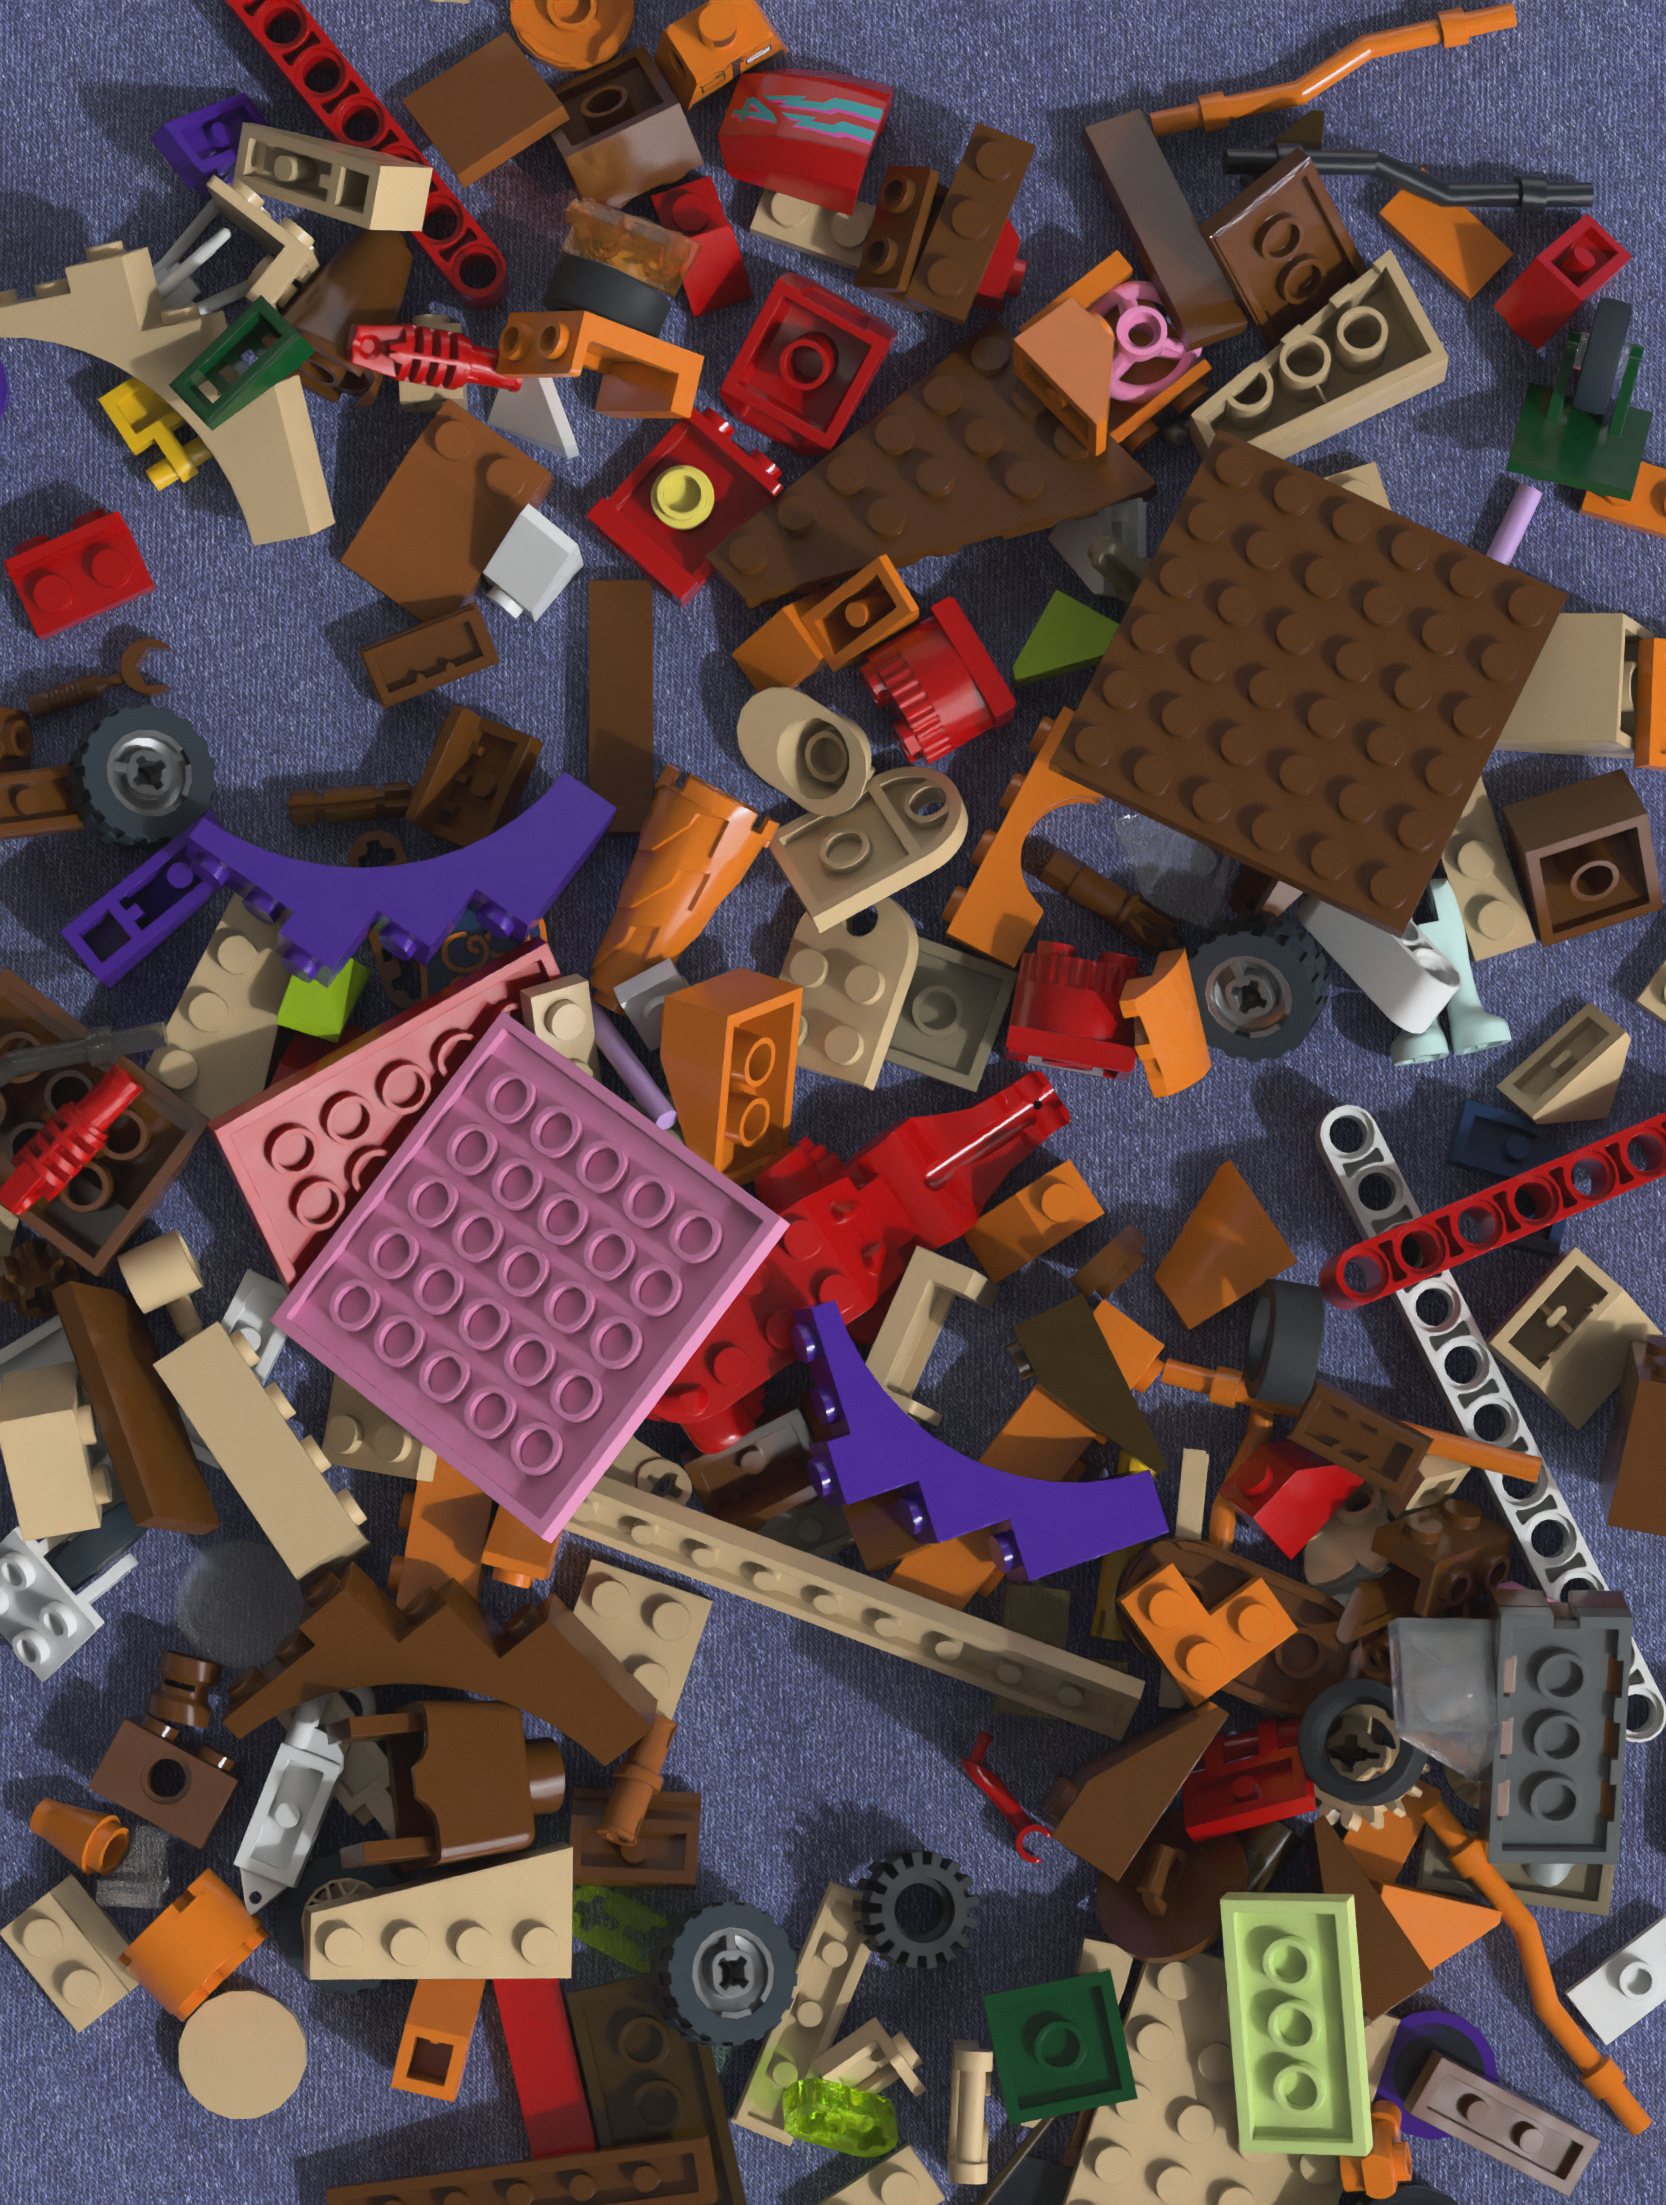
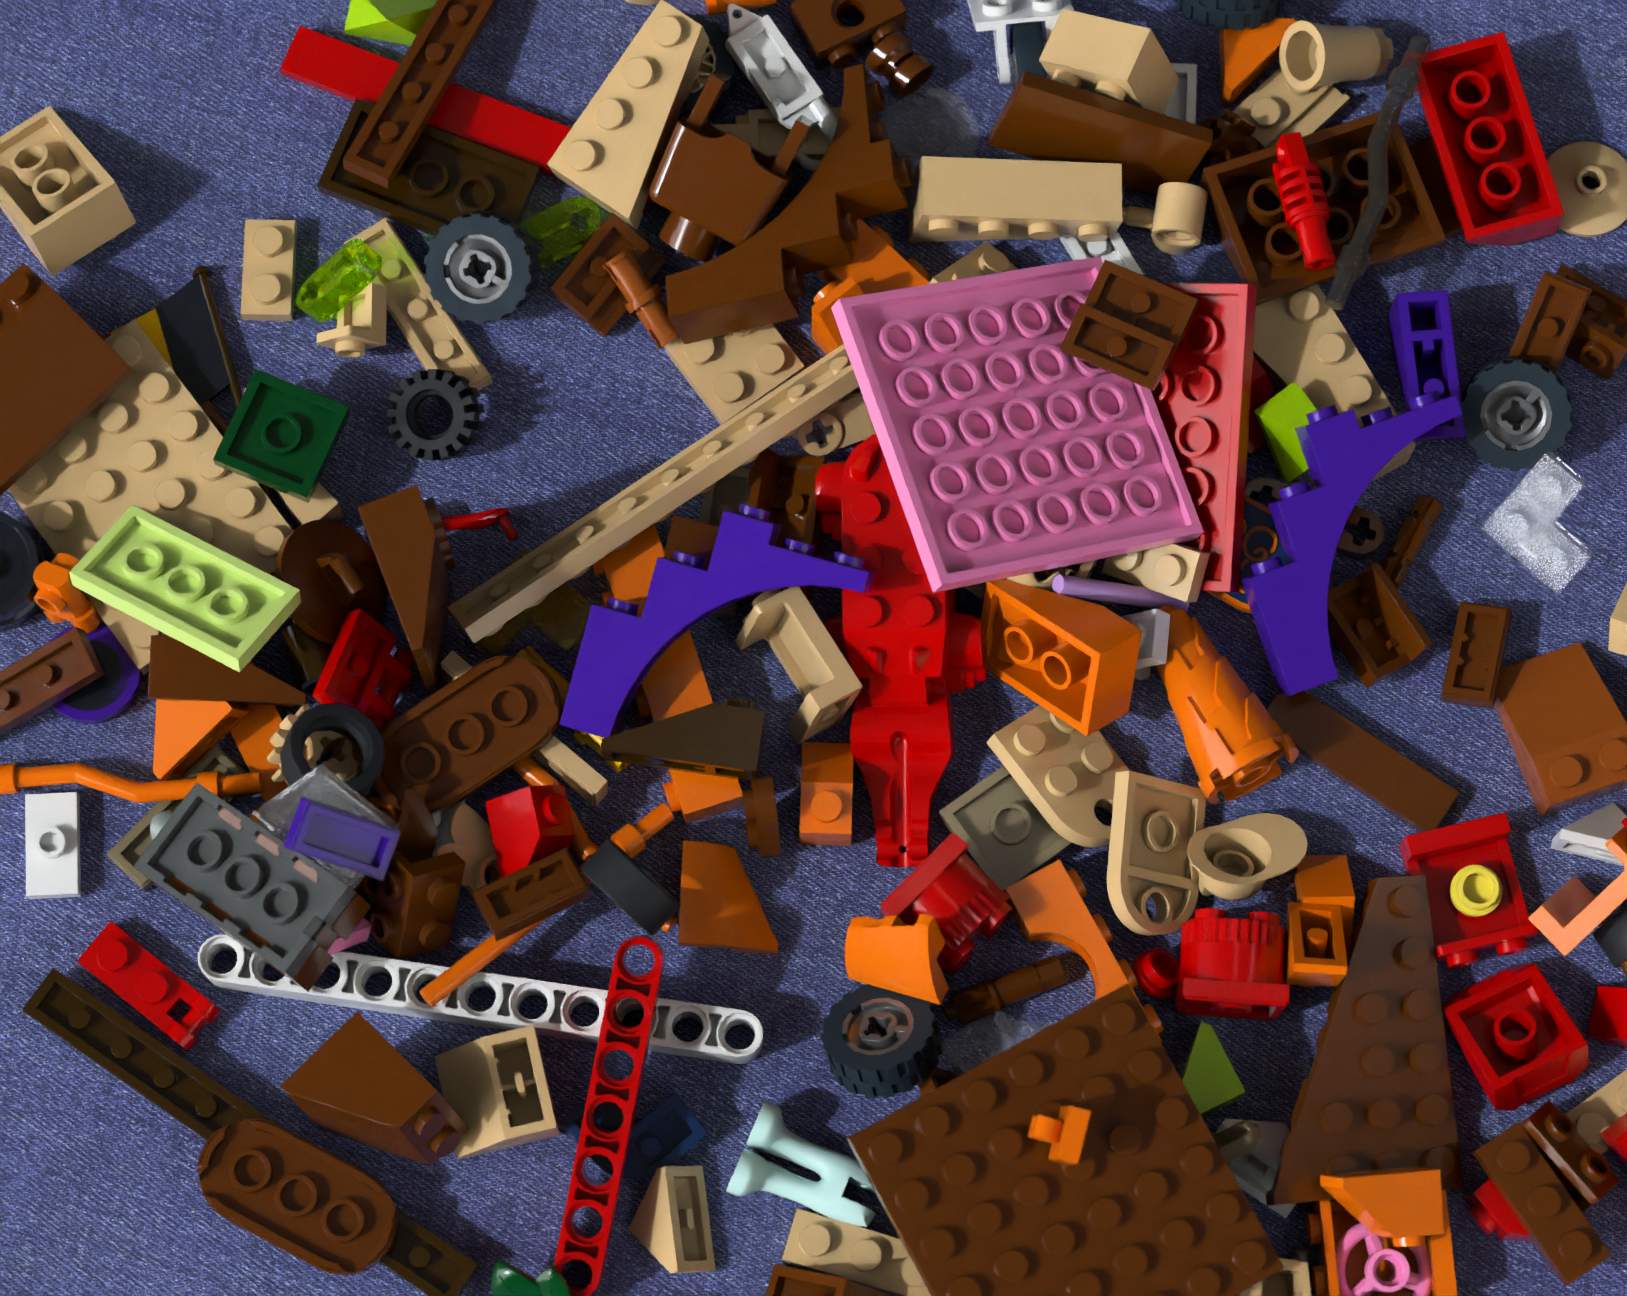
camera: 120 degrees right, 10 degrees down
(94, 686) = (1599, 430): reddish brown piece -> none
(253, 688) = (1529, 528): none -> clear plate
(339, 1229) = (1130, 325): none -> reddish brown slope
(438, 2037) = (564, 66): orange slope -> none
(531, 565) = (1494, 757): white slope -> none
(967, 2129) = (271, 351): tan plate -> none
(989, 761) = (1157, 973): none -> red plate
(1203, 1647) = (468, 695): orange plate -> none
(1256, 719) = (1065, 1133): none -> orange tile
(1401, 976) = (816, 1141): white beam -> none
(1430, 1486) = (468, 926): tan plate -> none
(1451, 1661) = (342, 838): none -> dark purple tile

